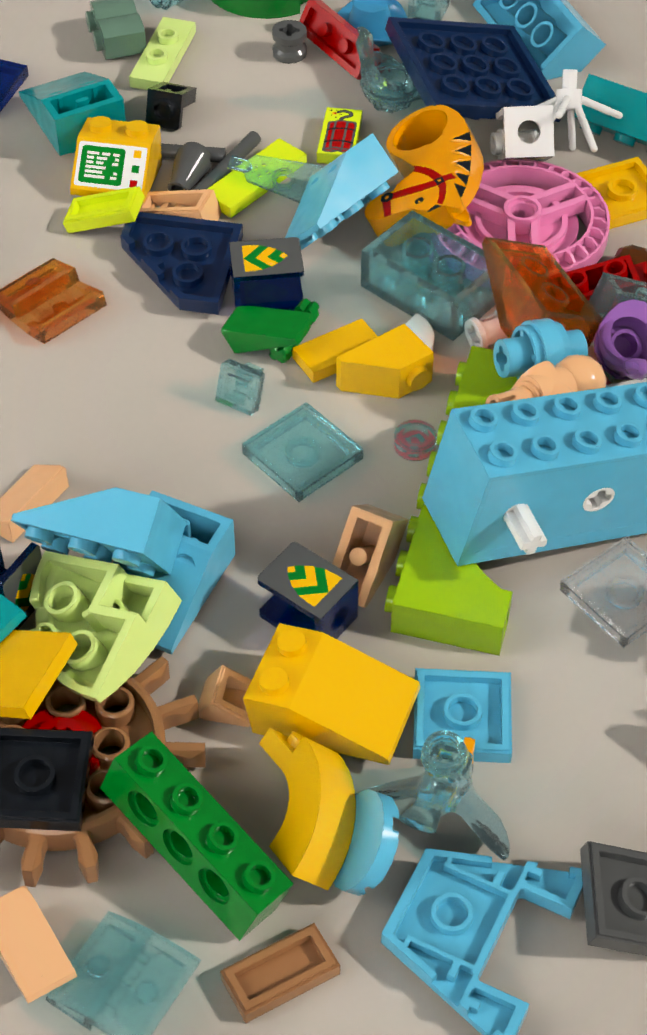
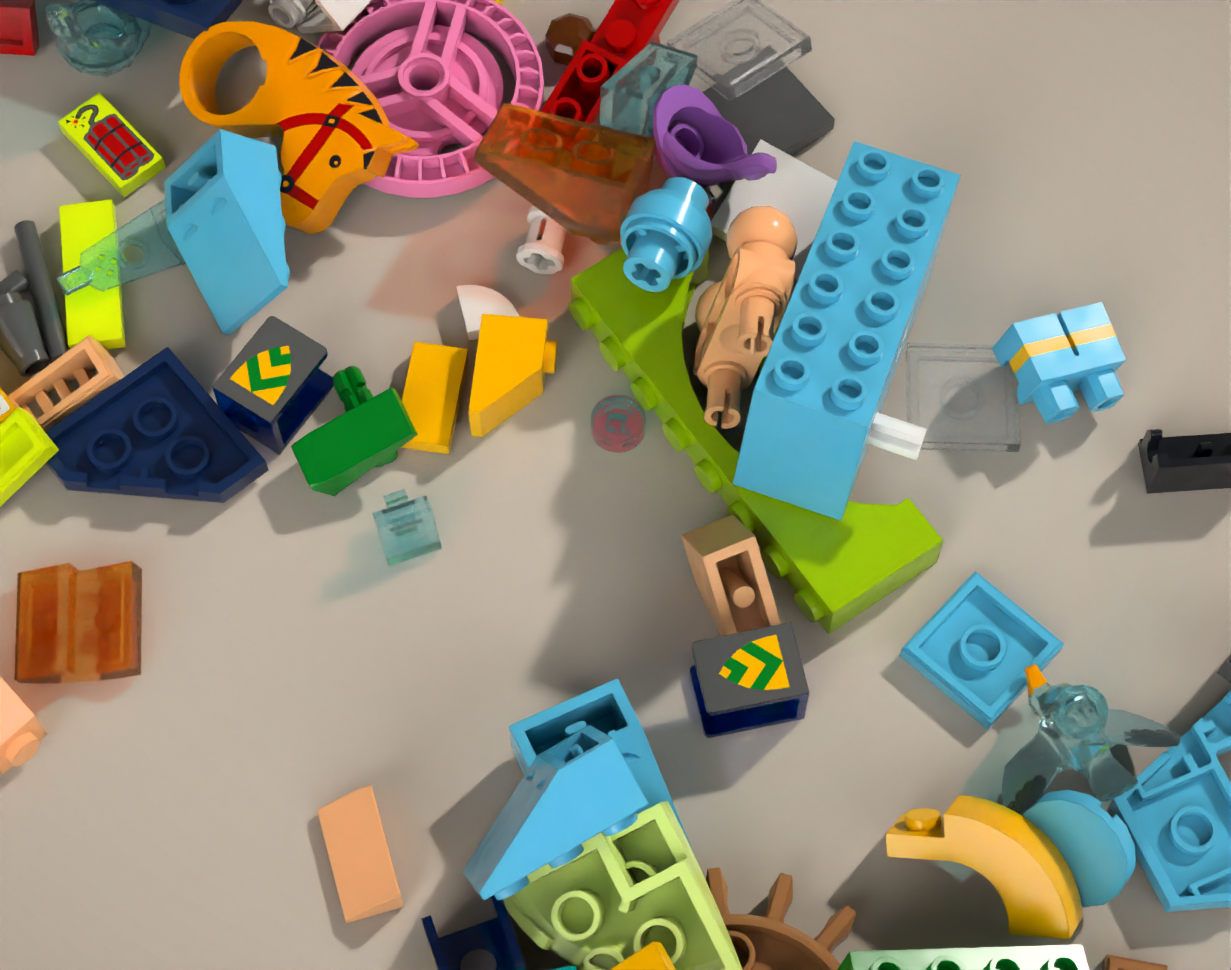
camera: 50 degrees left, 15 degrees up
(223, 697) = (789, 841): light nougat slope -> none
(302, 451) = (539, 537): clear light blue tile -> none
(329, 695) = (882, 750): yellow slope -> none
(428, 274) = (429, 232): clear light blue brick -> none

